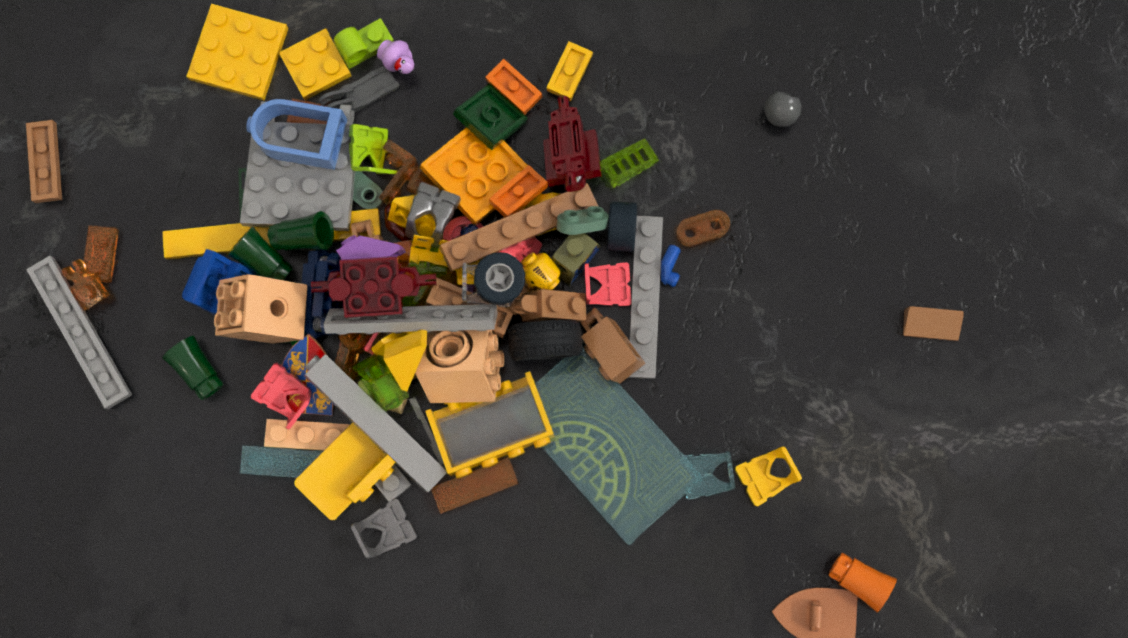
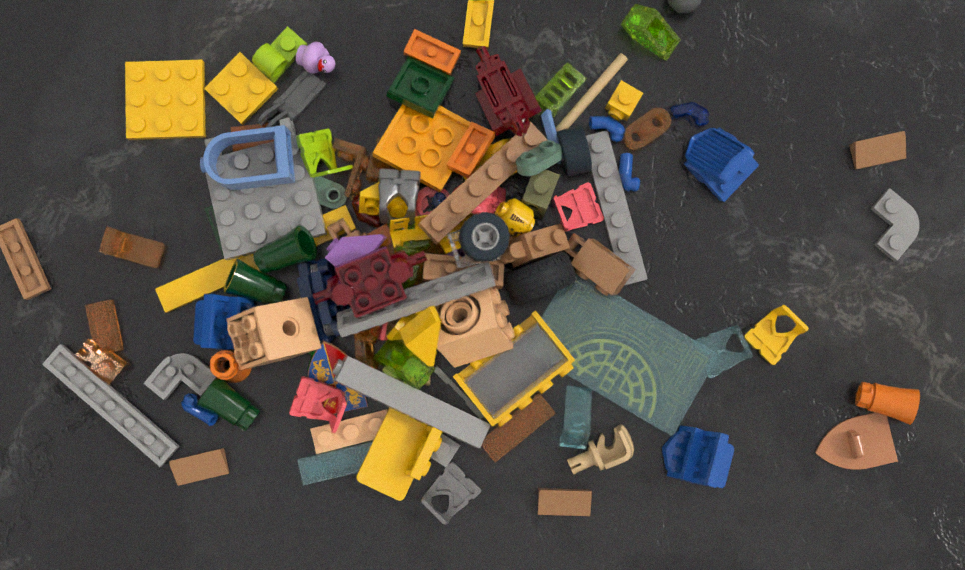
camera: 20 degrees left, 5 degrees up
(144, 421) = (199, 466): none -> medium nougat slope
(153, 183) = (131, 247): none -> clear orange bracket
(155, 357) = (189, 405): none -> blue arm
(156, 317) = (177, 369): none -> light grey plate
(205, 337) = (219, 370): none -> orange plant
(497, 577) = (564, 502): none -> medium nougat slope
(537, 494) = (576, 417): none -> clear light blue bracket
(551, 542) = (604, 456): none -> tan piece
(604, 198) = (549, 128): none -> medium blue tile
(649, 575) = (698, 456): none -> blue piece
(660, 175) = (594, 90): none -> tan bar
(667, 212) = (609, 123): none -> blue arm
(688, 194) = (623, 101): none -> yellow bracket
(738, 133) = (651, 30): none -> clear neon green slope
(758, 225) = (692, 109): none -> clear blue arm
(765, 283) = (719, 161): none -> blue piece
(935, 404) = (902, 222): none -> light grey plate

